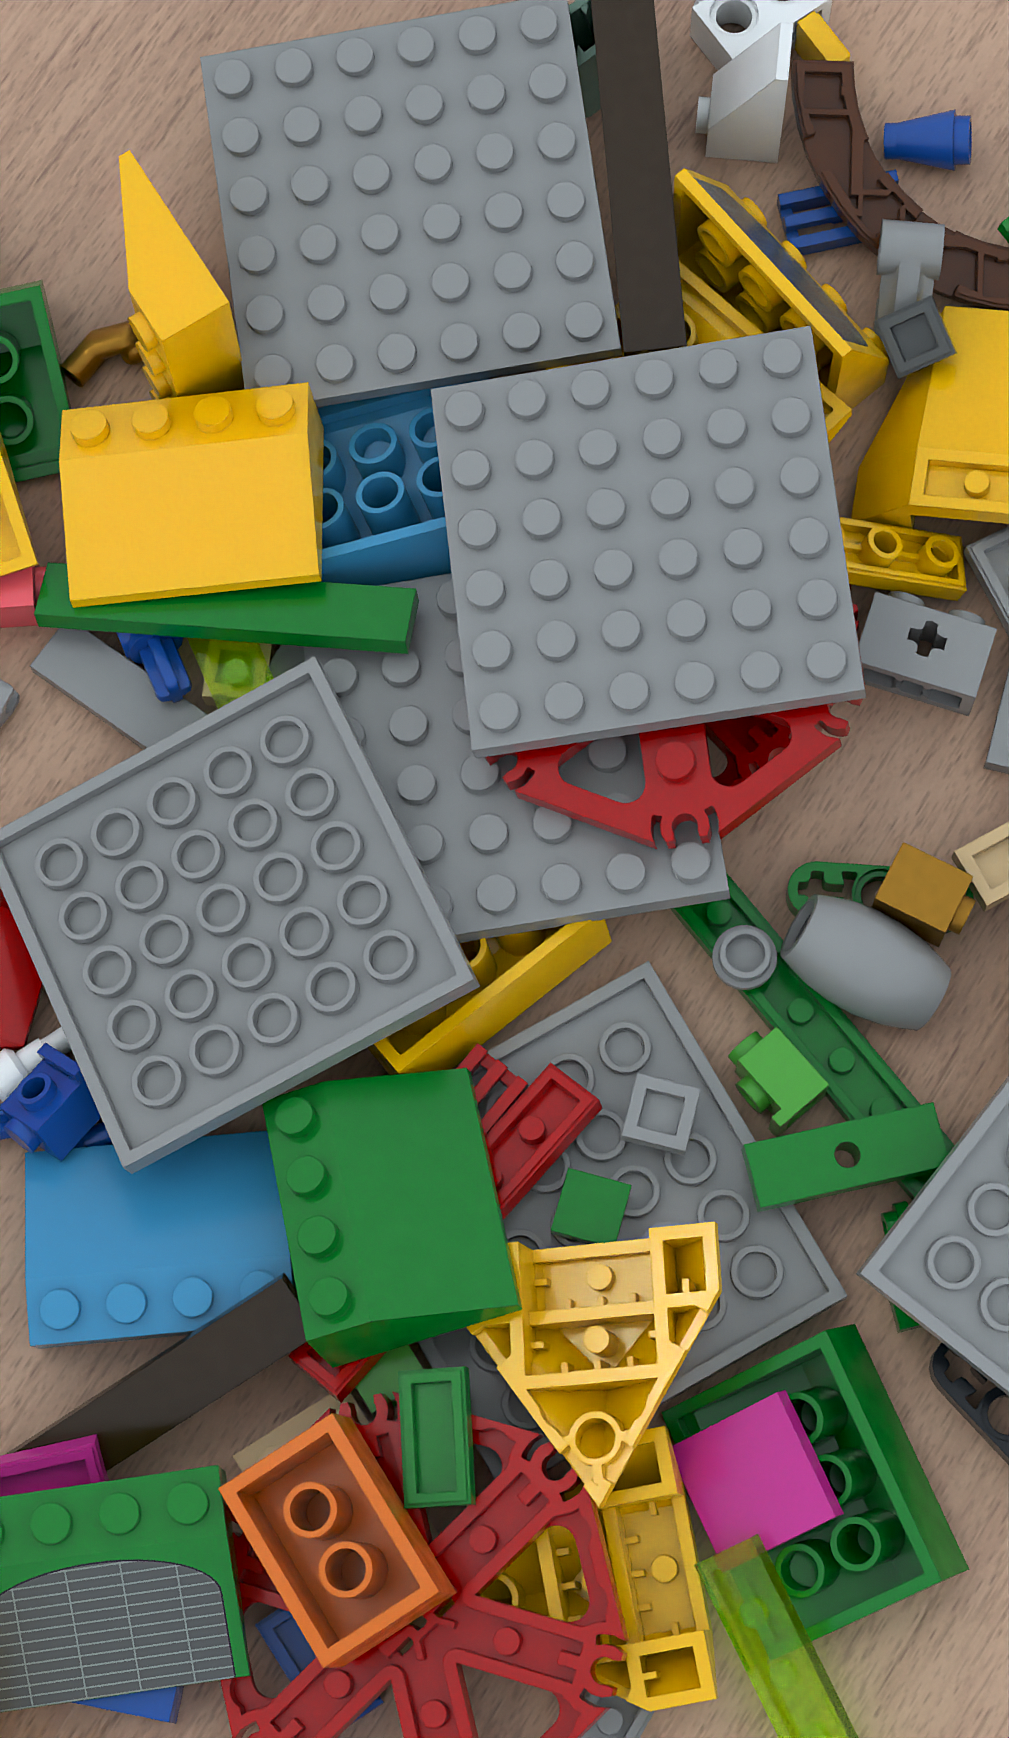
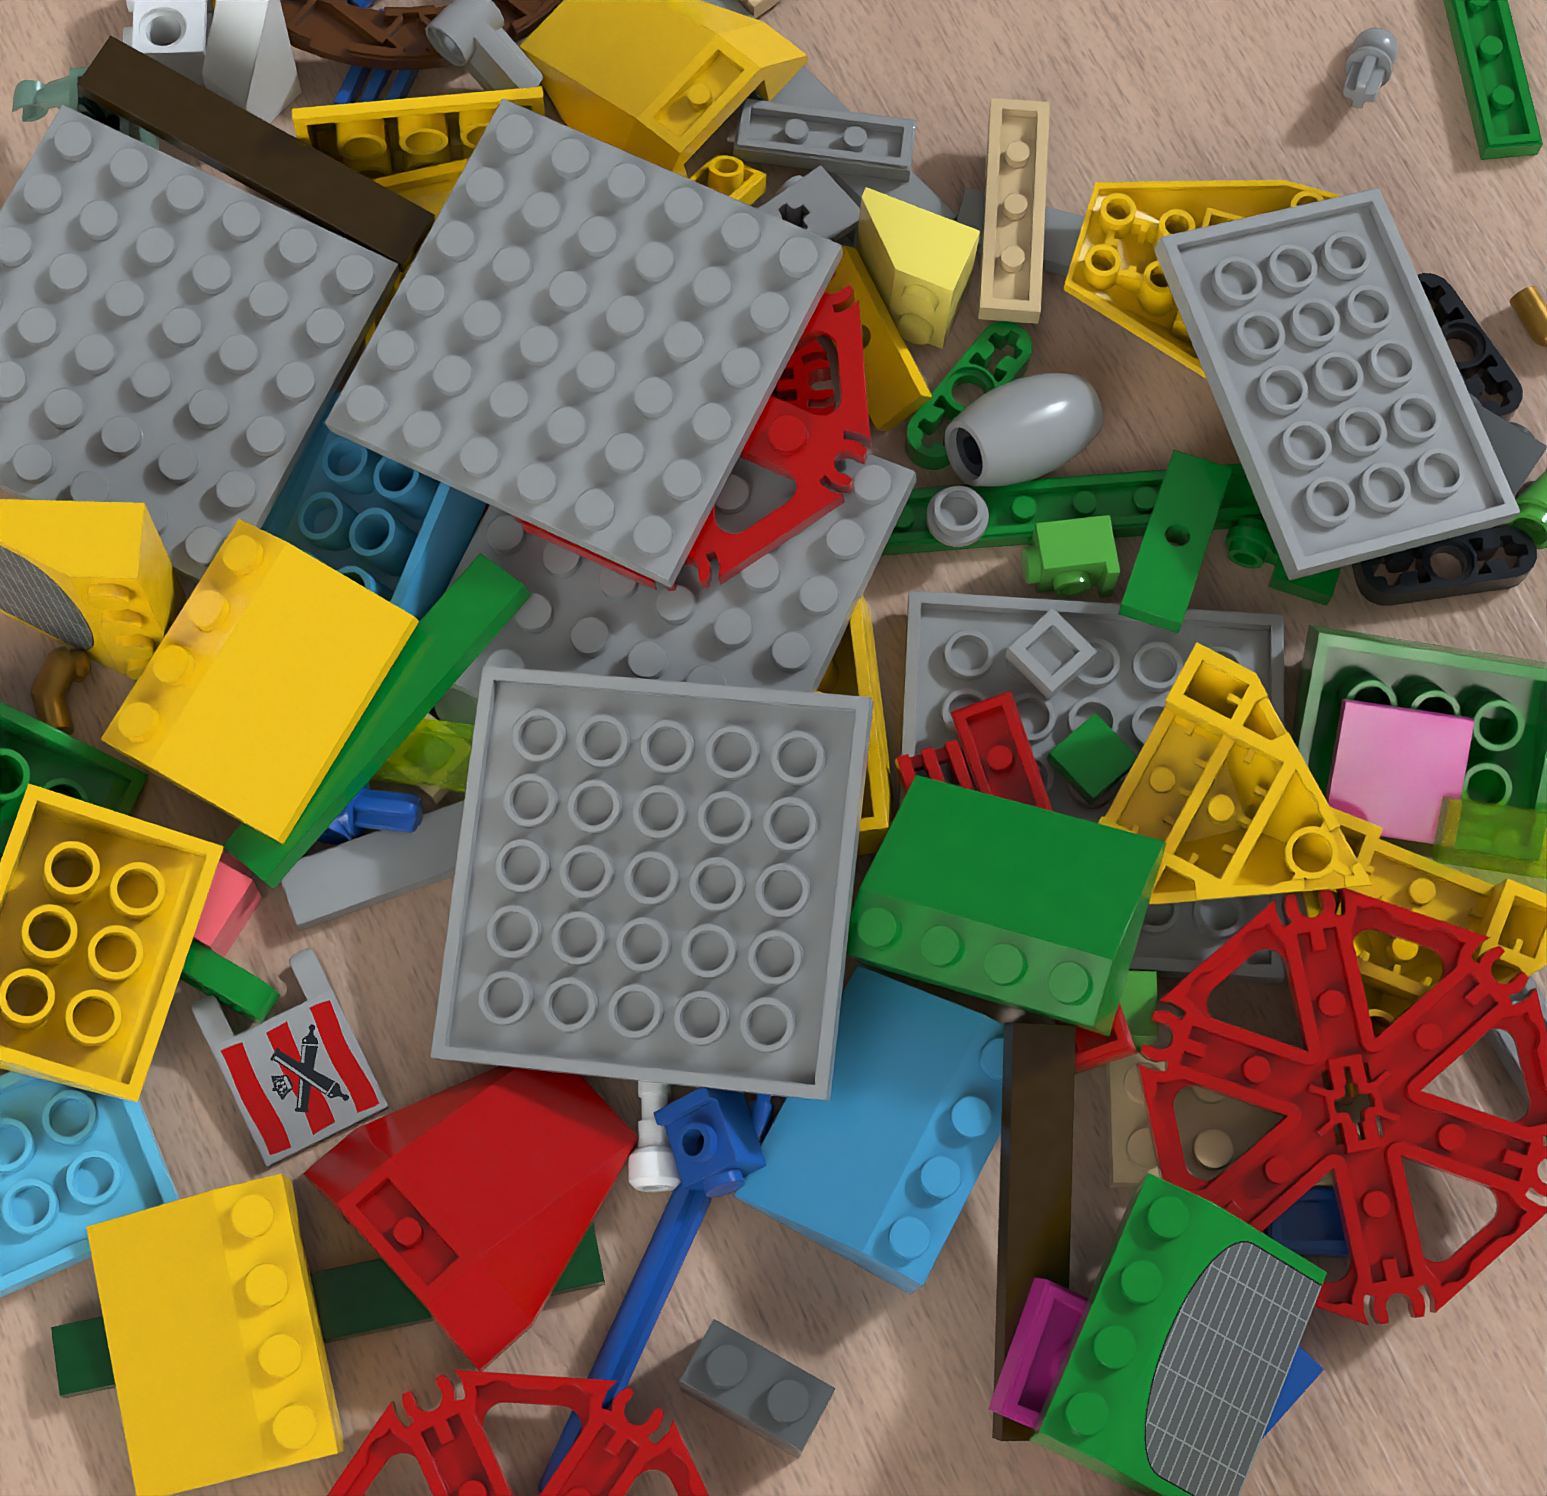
camera: 65 degrees left, 5 degrees down
(336, 1541) = (1273, 1114): orange brick -> none
(436, 1437) = (1226, 984): green tile -> none
(866, 775) = (891, 374): none -> yellow tile
(915, 337) = (538, 64): dark grey tile -> none
(925, 894) = (1000, 348): pearl gold brick -> none
(953, 776) = (917, 264): none -> light yellow slope

